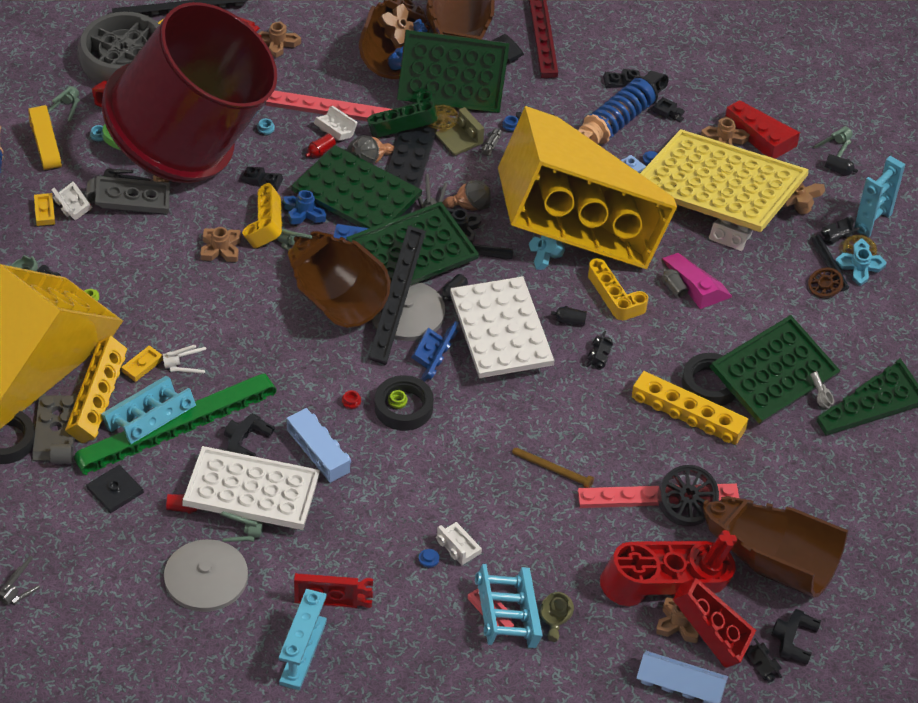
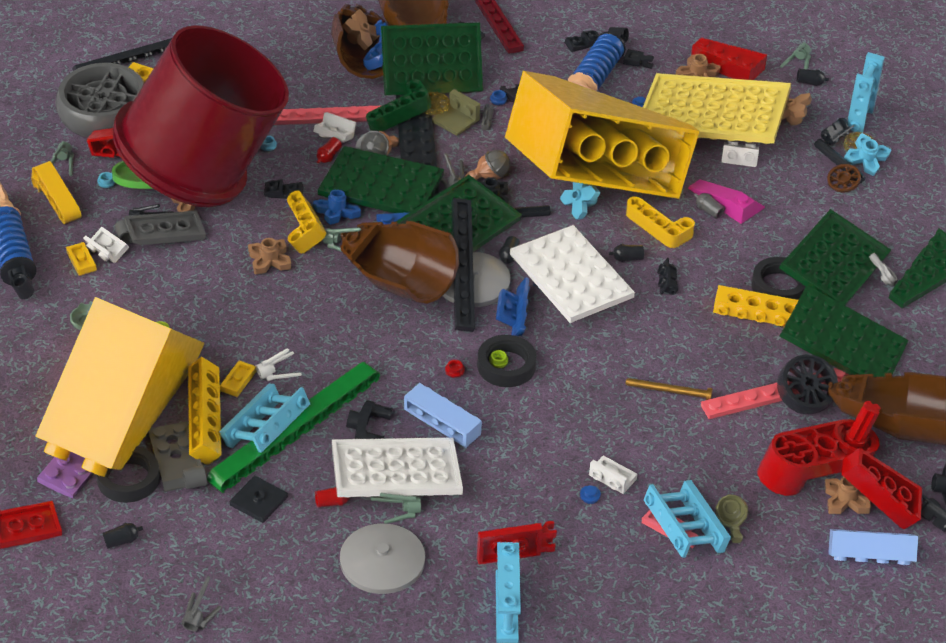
camera: 15 degrees left, 5 degrees down
(746, 453) = (842, 336): none -> dark green plate

